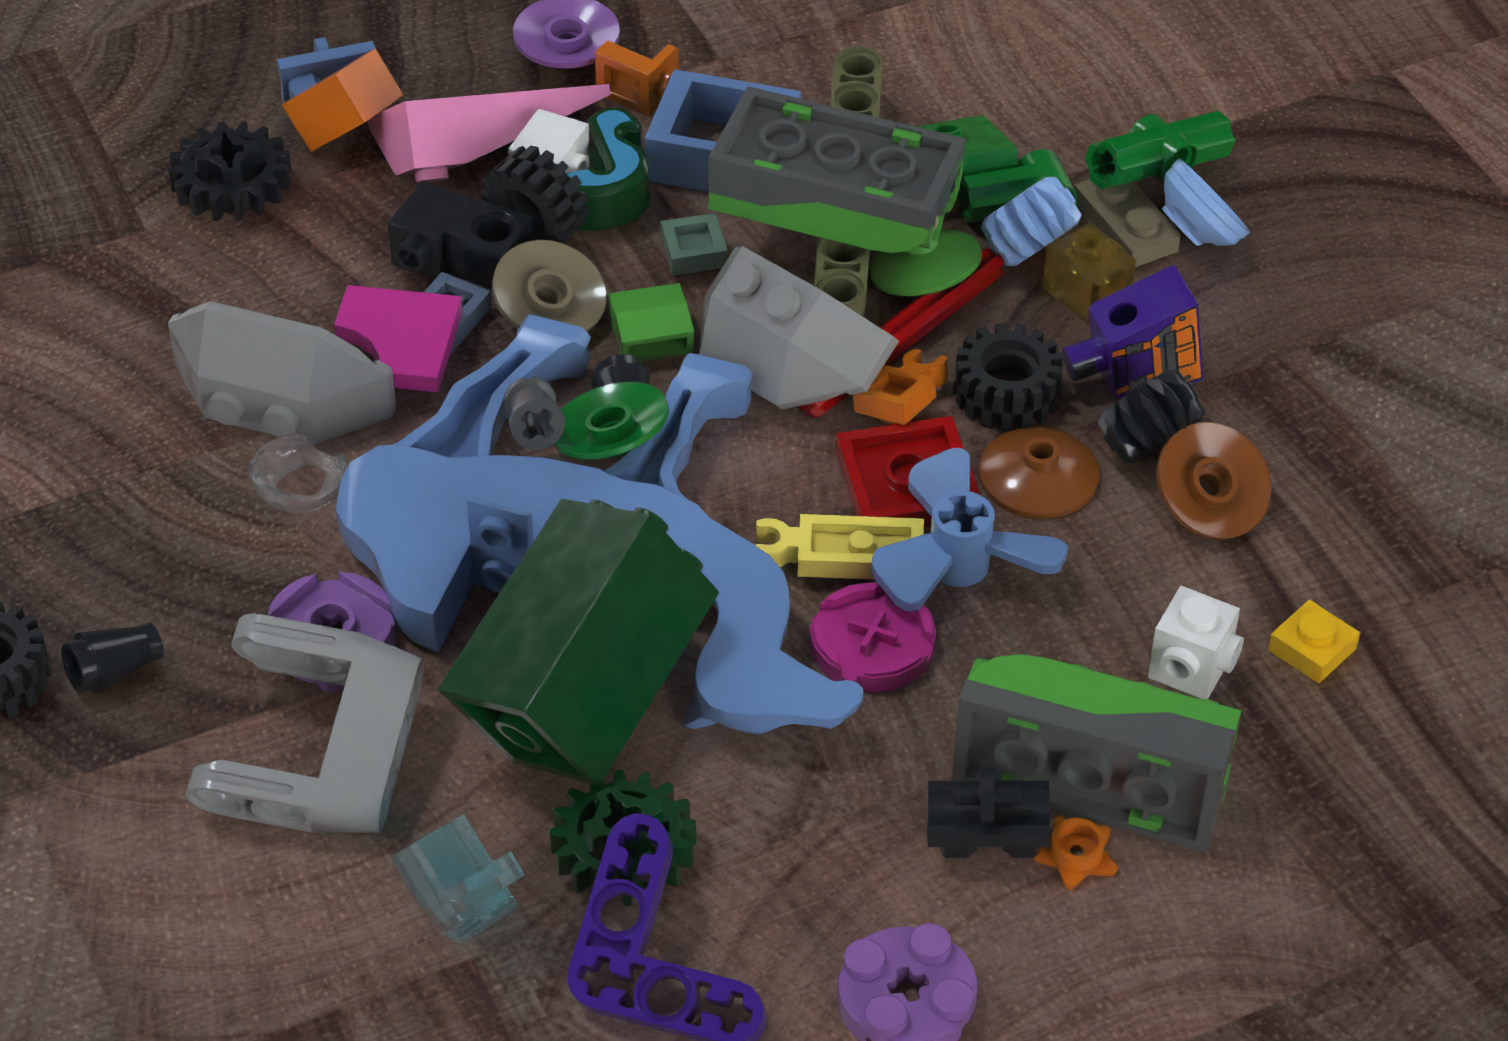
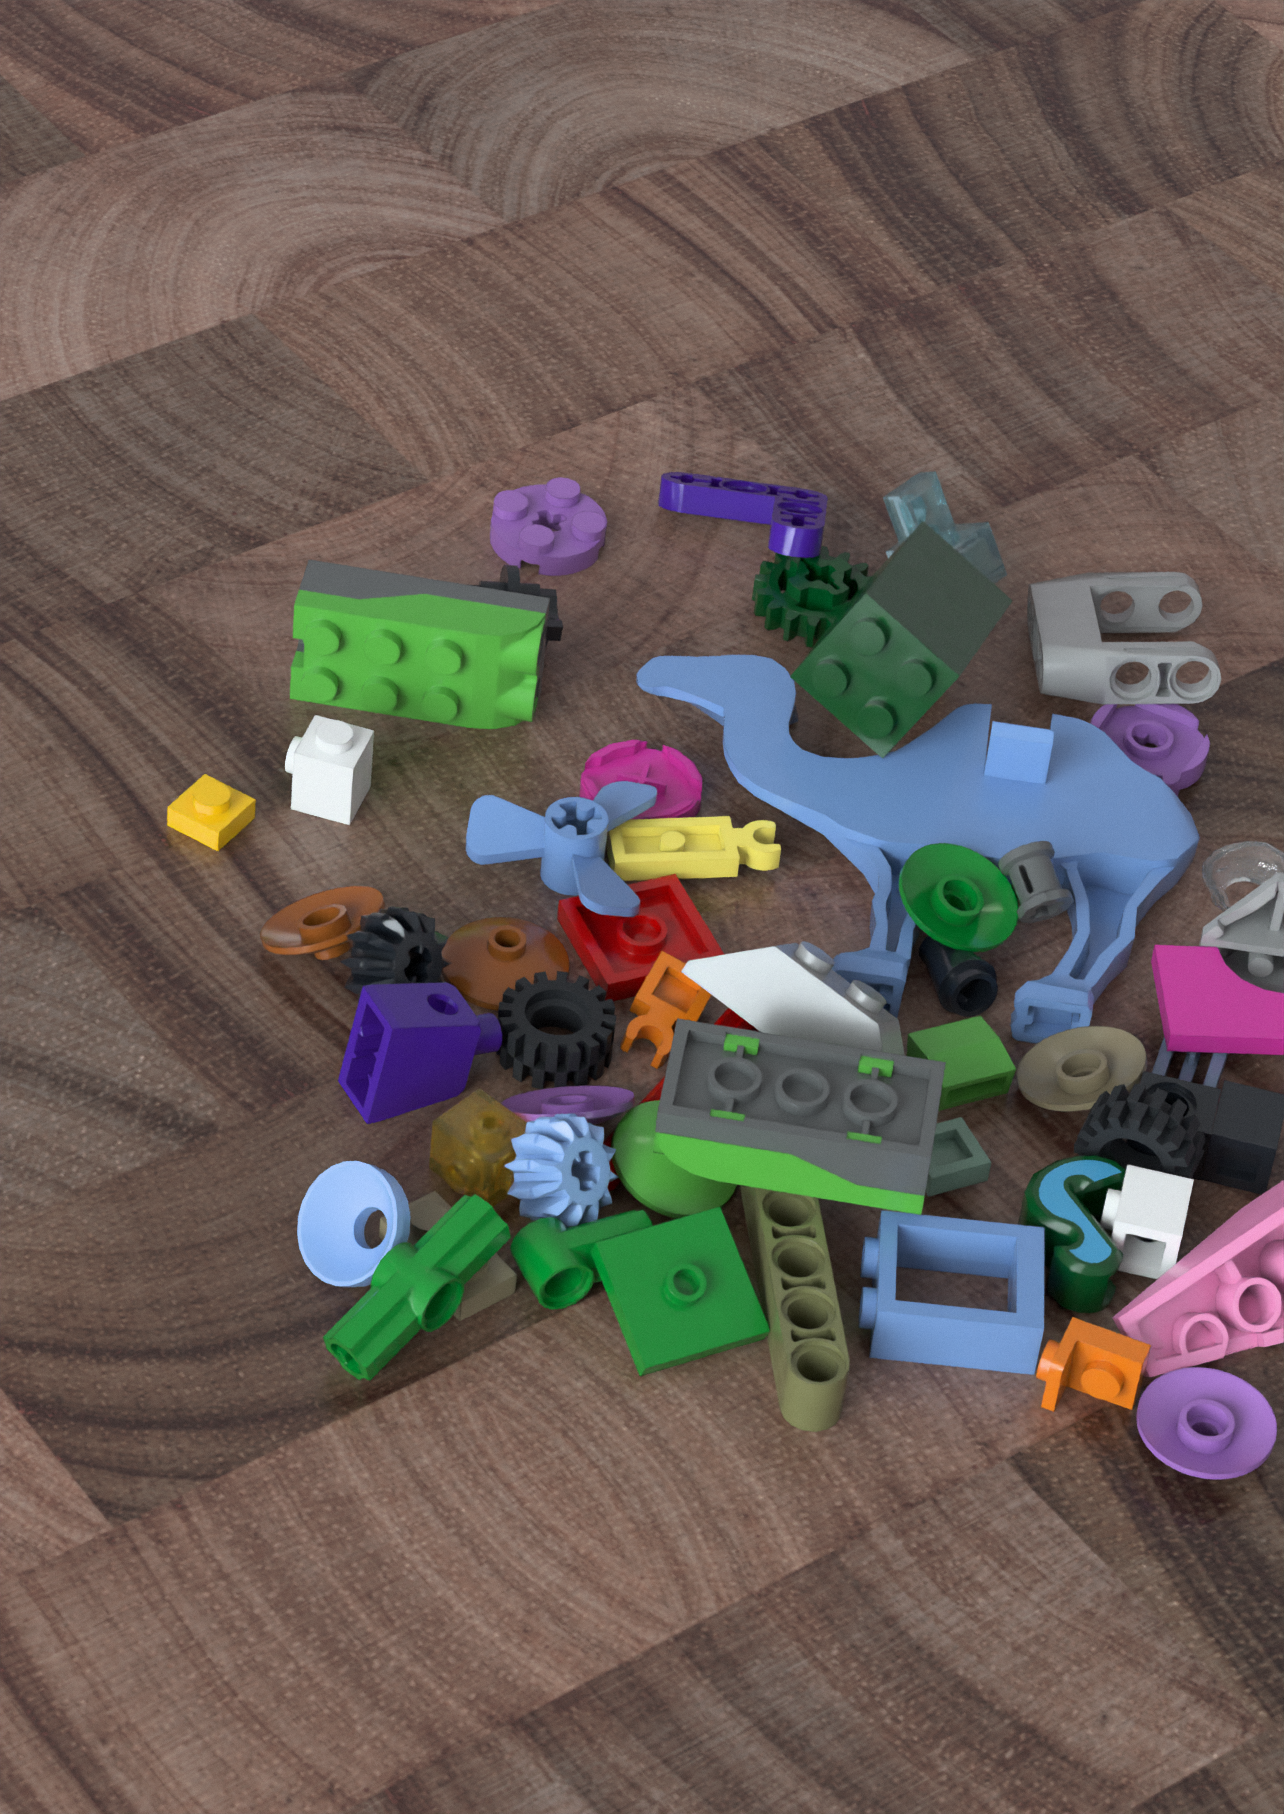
camera: 165 degrees right, 5 degrees down
(1016, 268) = (592, 1102): none -> medium lavender dish

